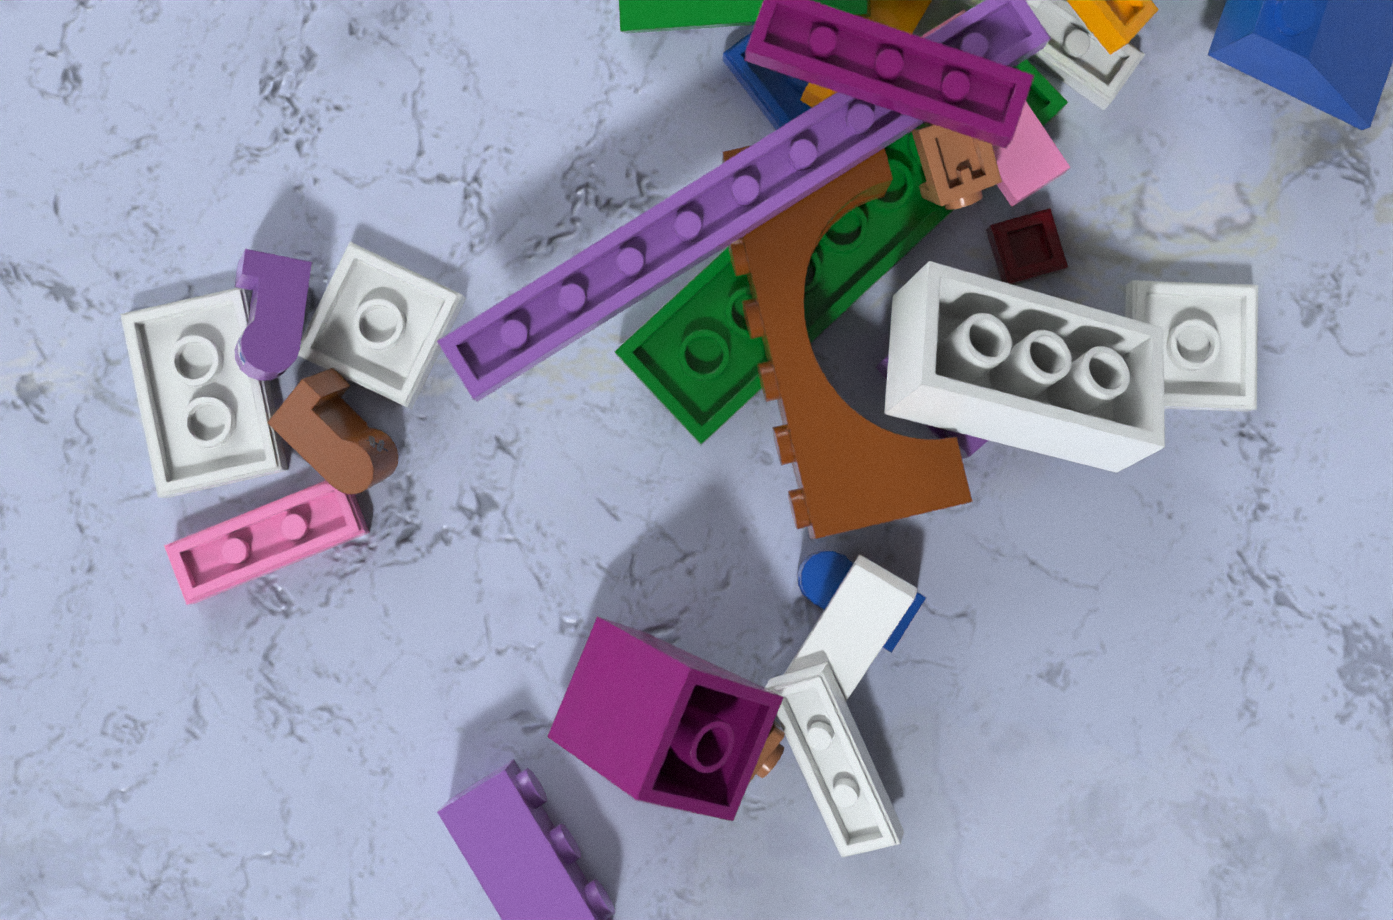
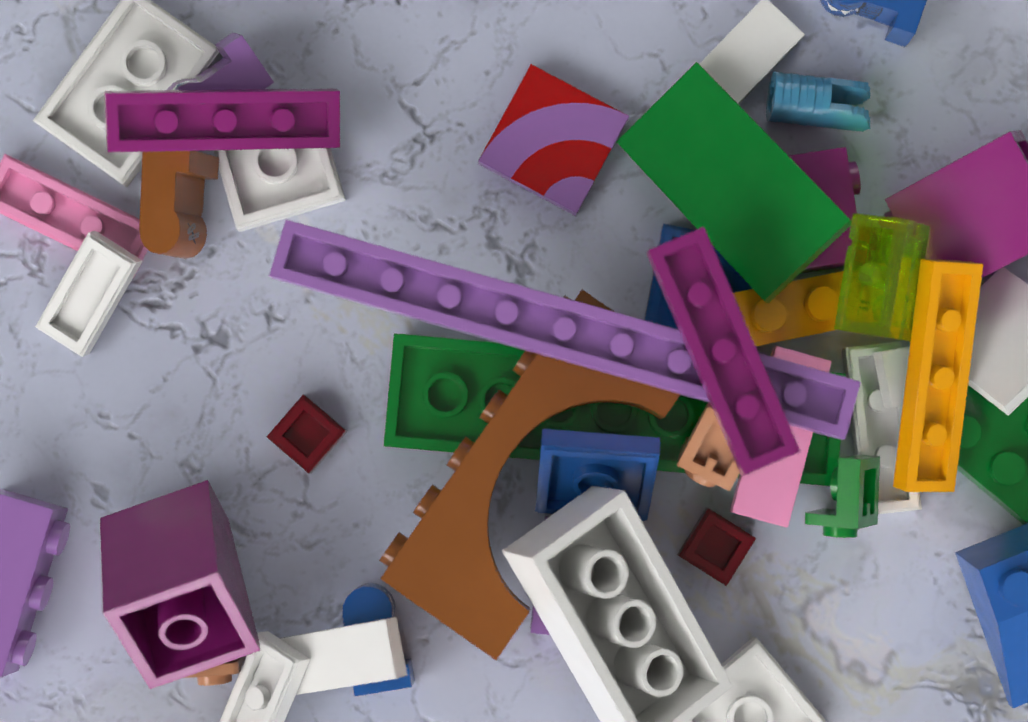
camera: 50 degrees right, 0 degrees up
(300, 329) = (221, 119): none -> magenta plate
(347, 579) = (88, 293): none -> white tile
(571, 81) = (553, 140): none -> tile
(631, 501) = (306, 434): none -> dark red tile
(862, 285) = (579, 460): none -> blue tile
(1085, 86) = (856, 490): none -> green bracket

